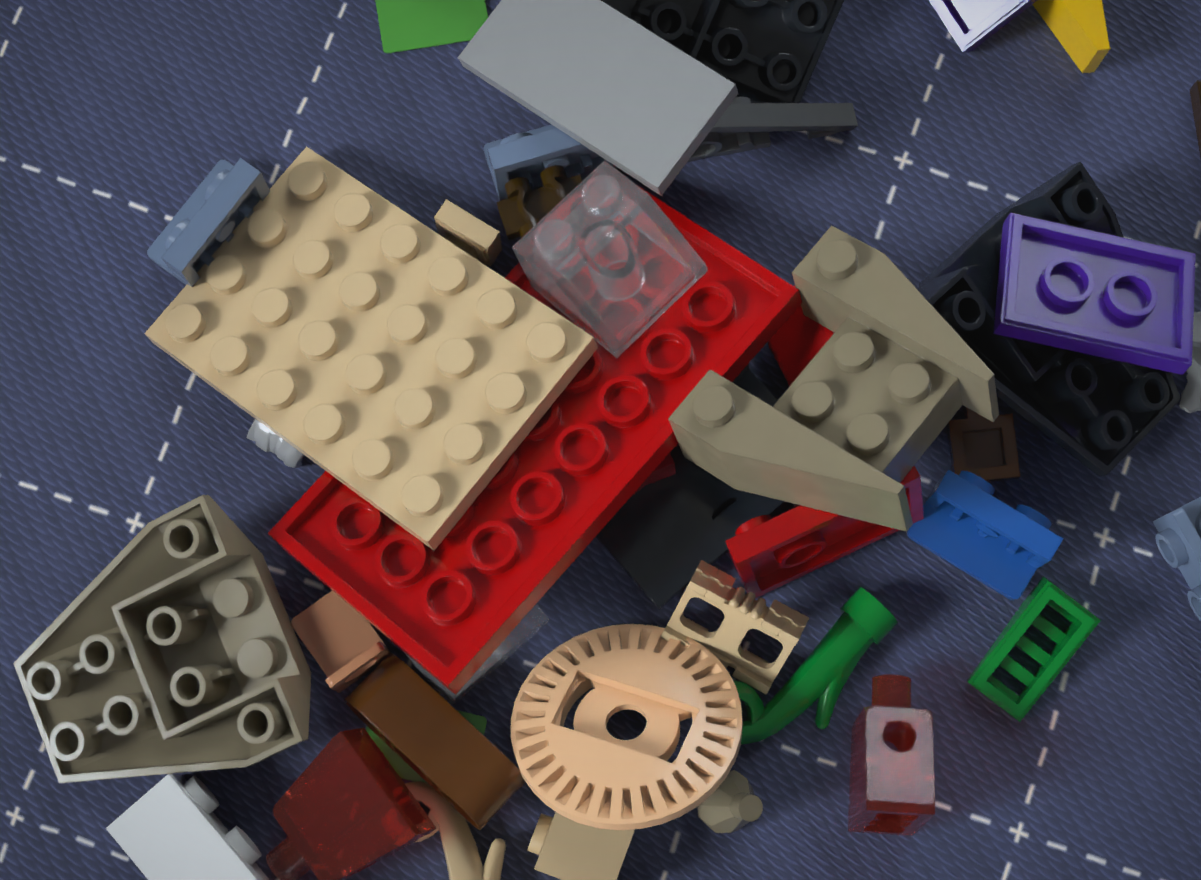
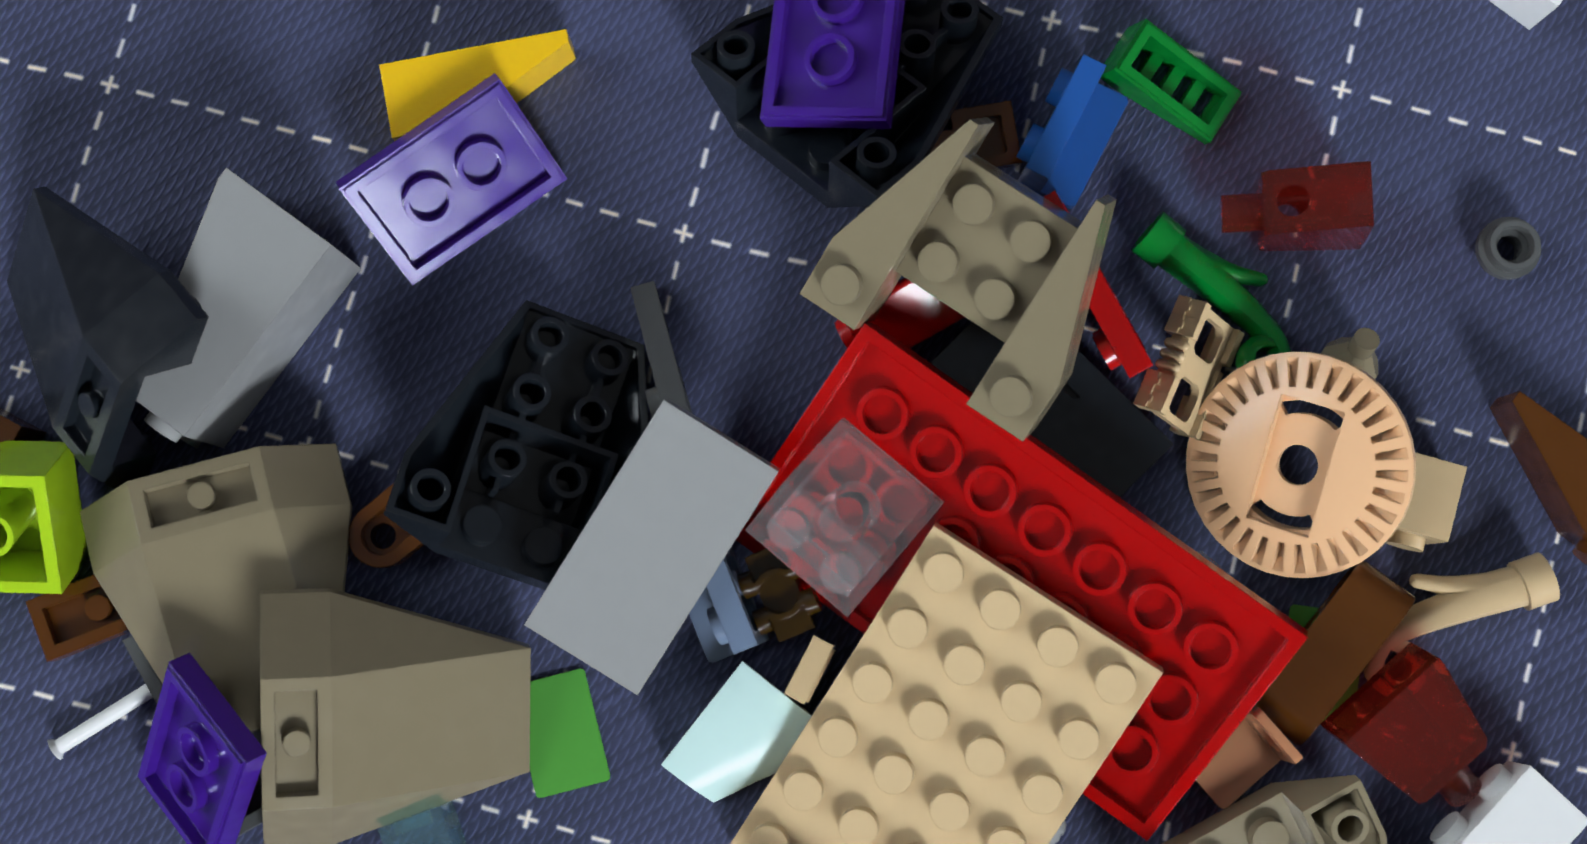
camera: 90 degrees left, 5 degrees up
(411, 159) = (738, 736): none -> light aqua slope

